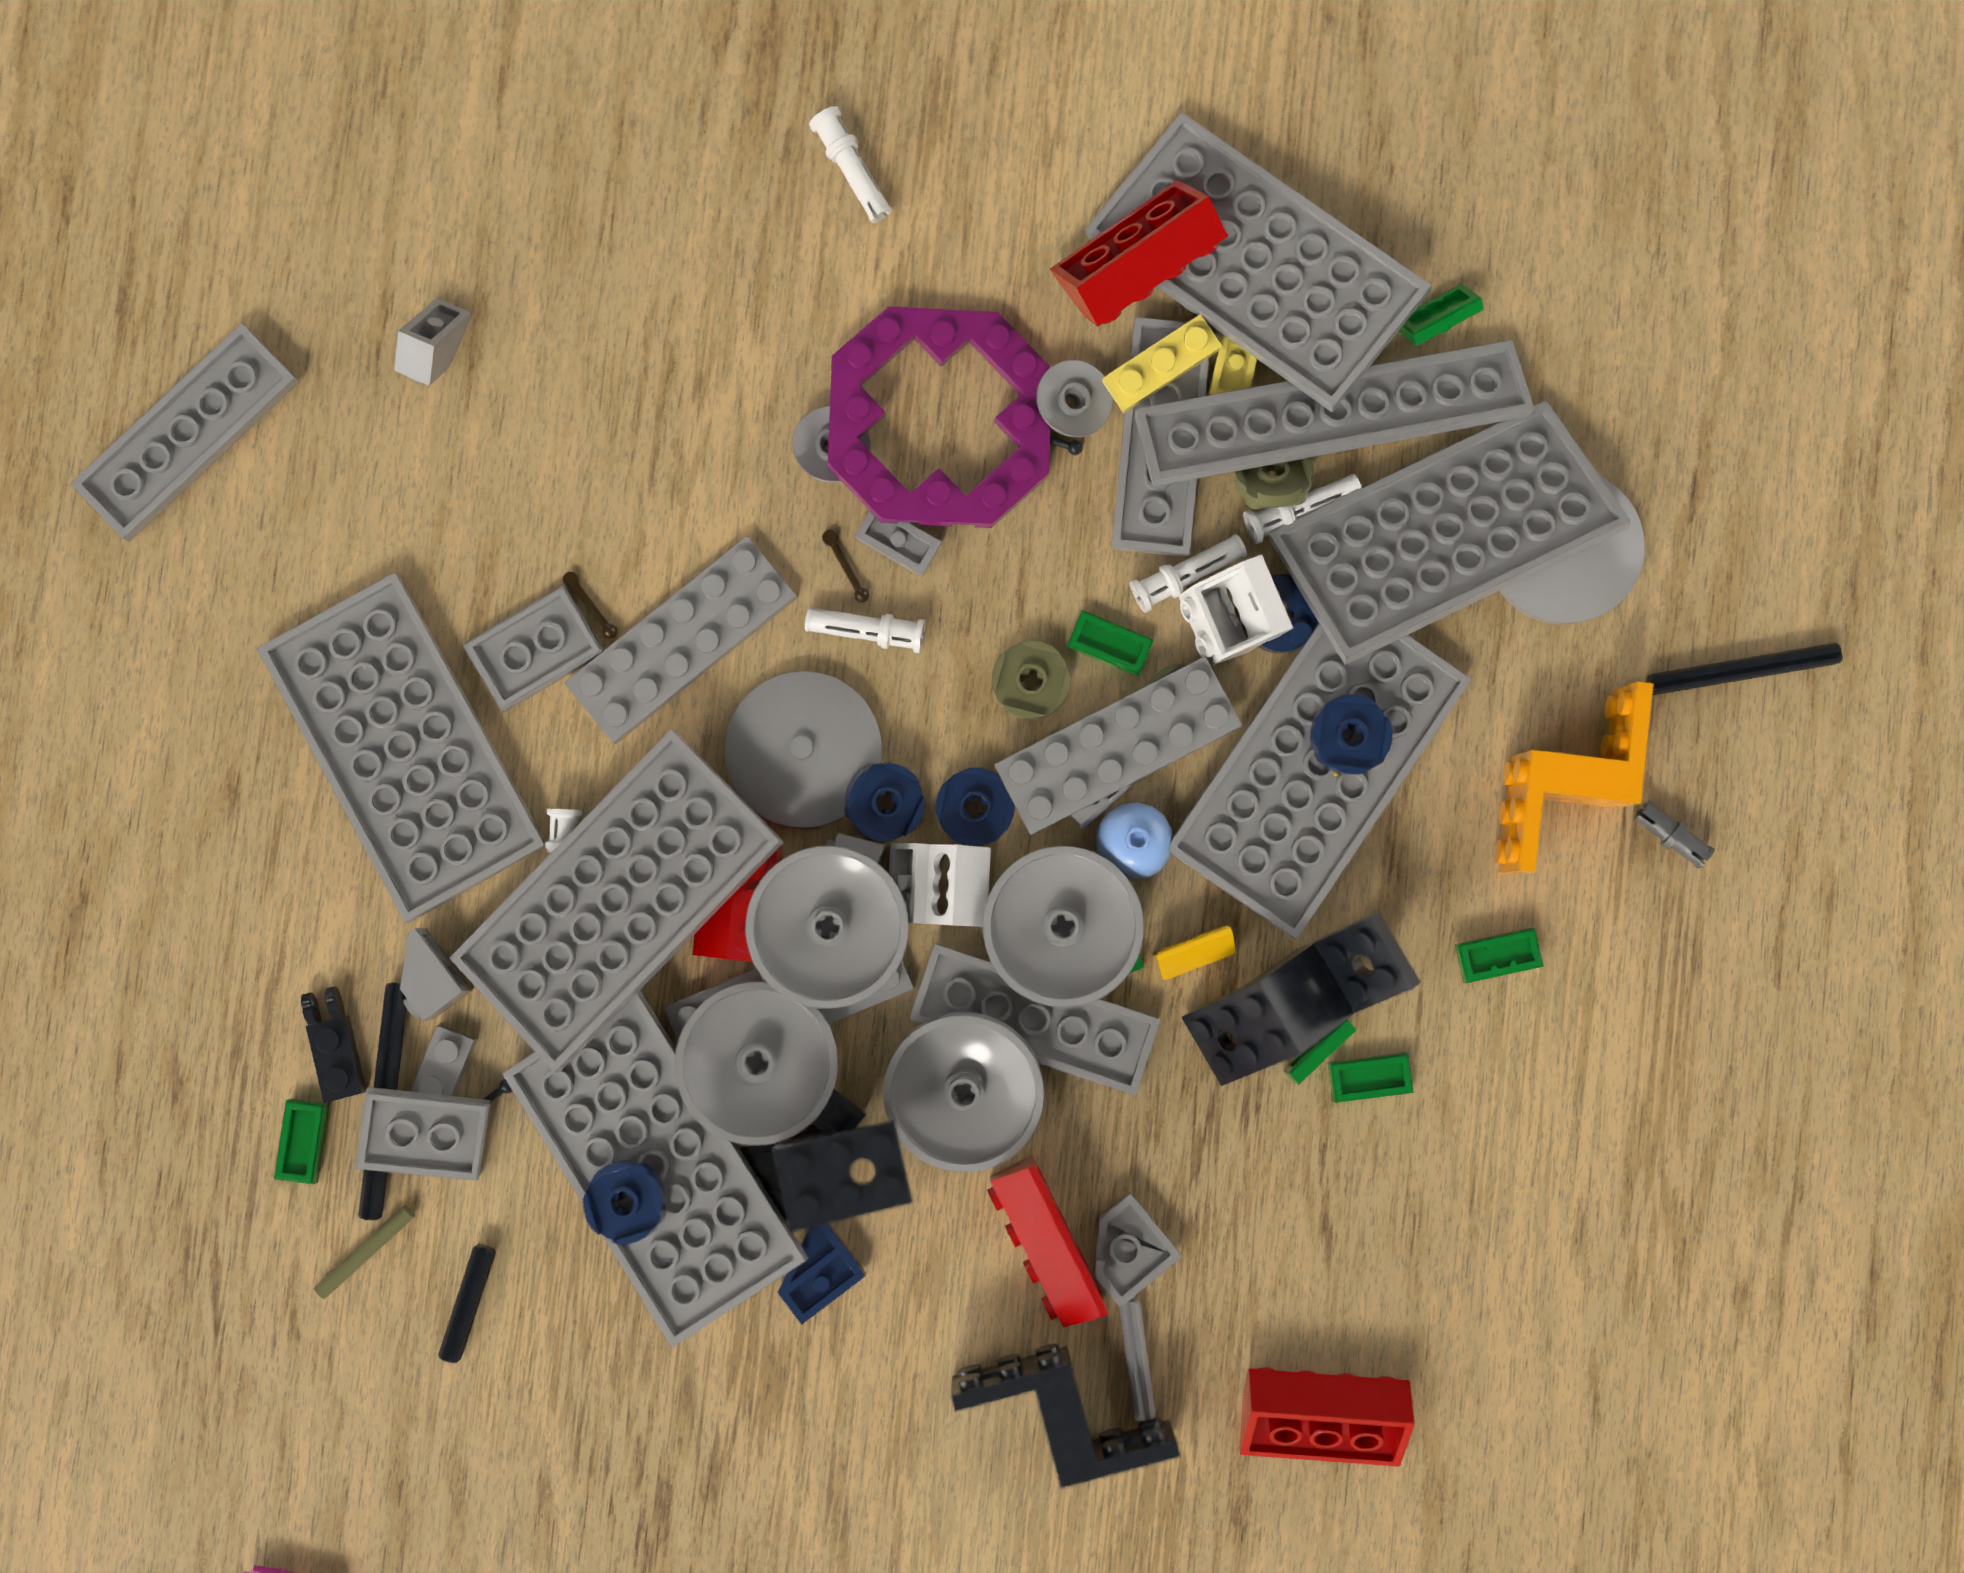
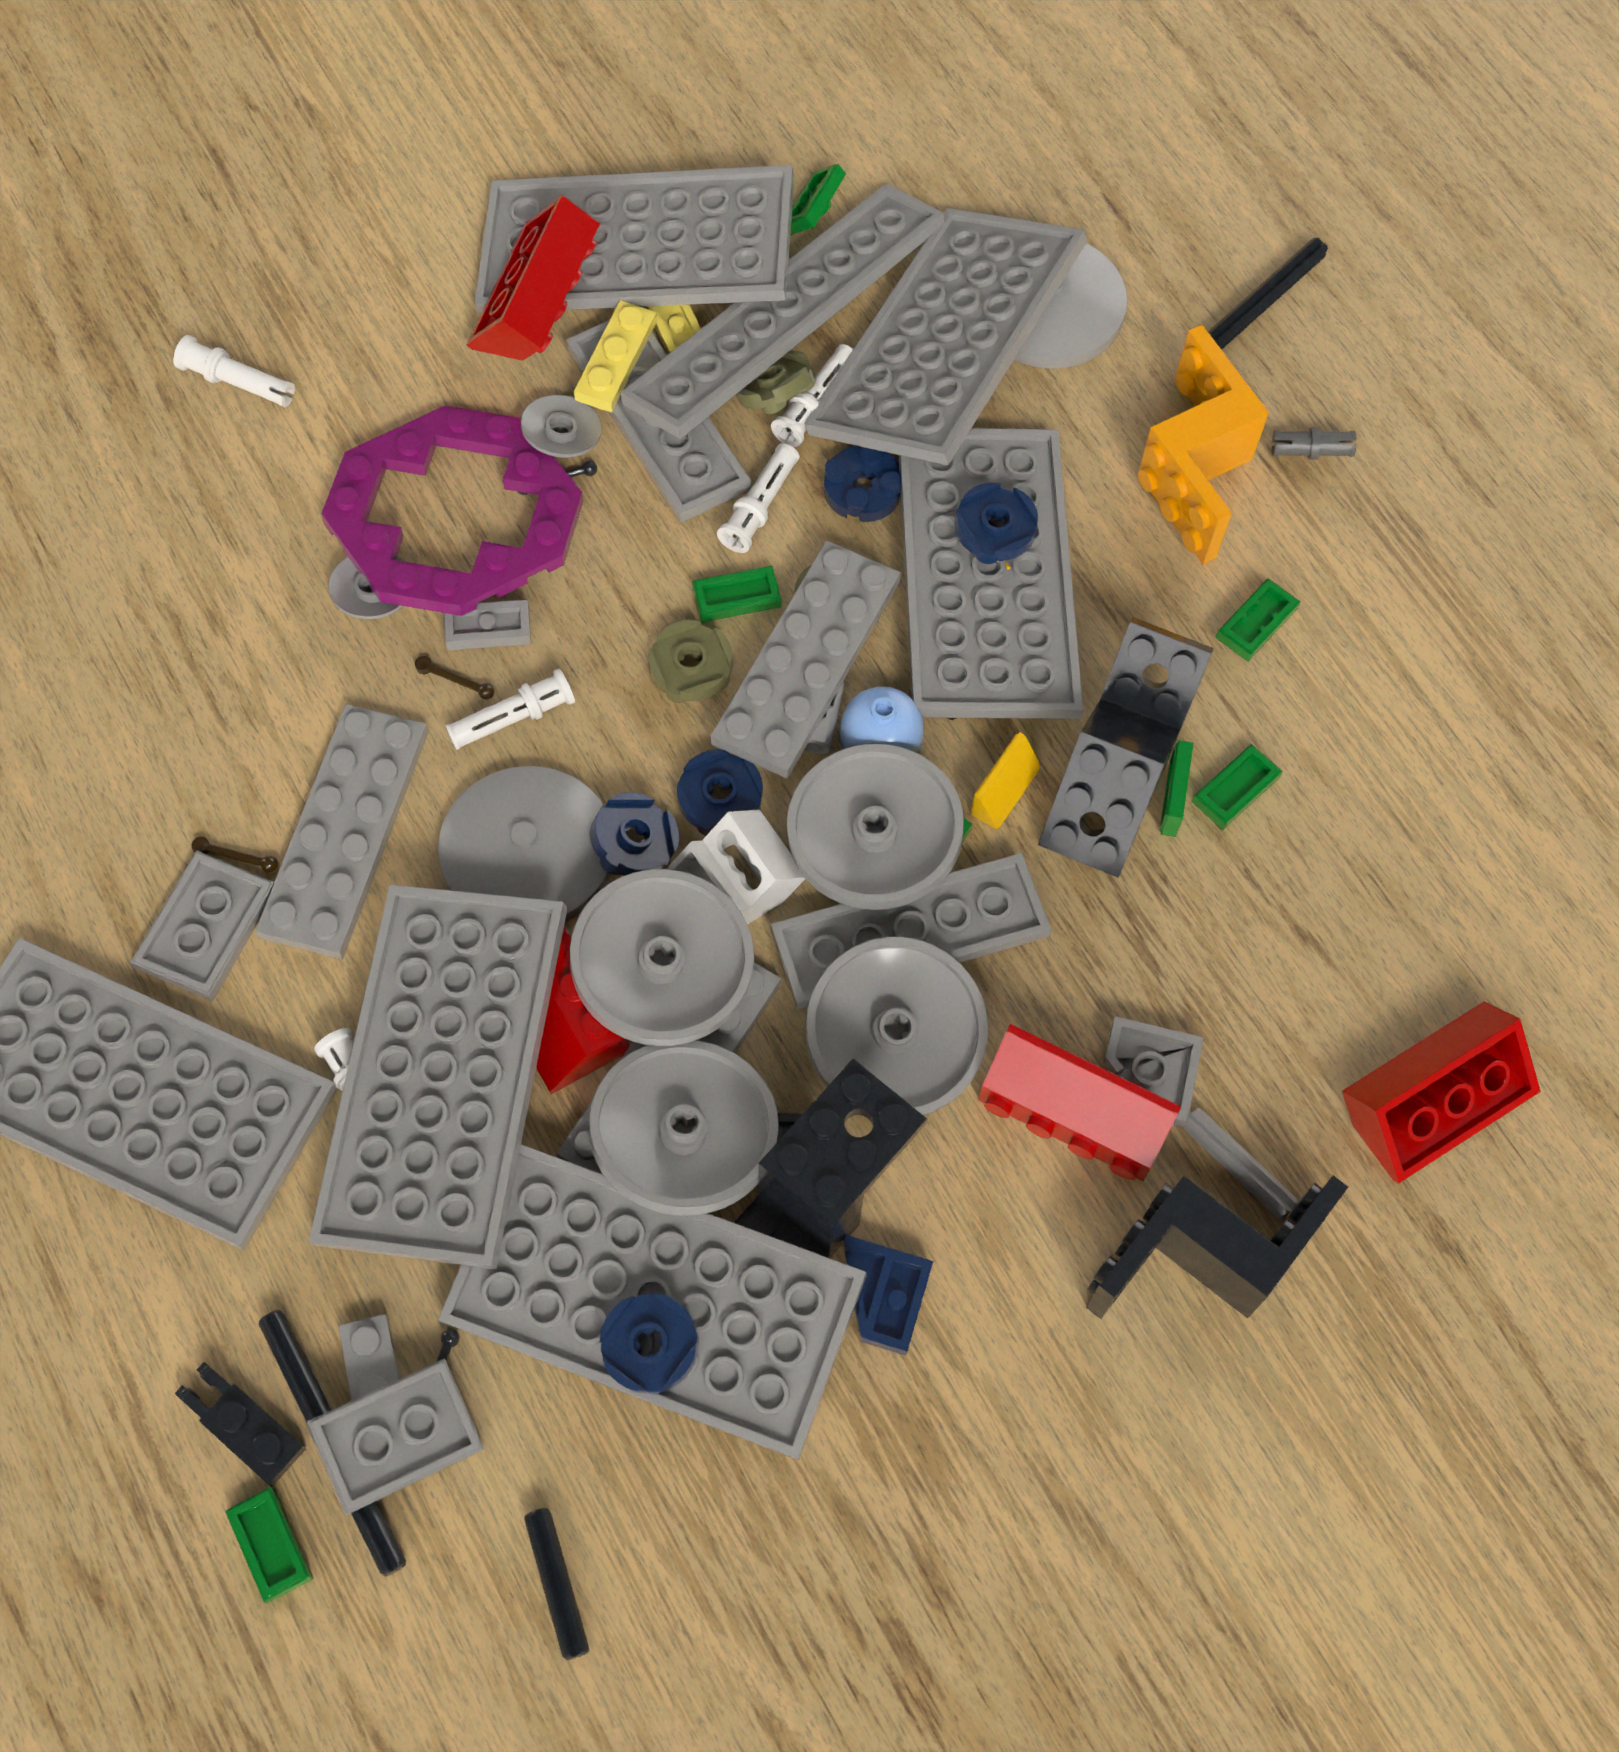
camera: 40 degrees left, 20 degrees down
(364, 1252) = (411, 1611): olive bar -> none
(429, 977) = (302, 1283): light grey slope -> none
(1214, 618) = (846, 477): white piece -> none

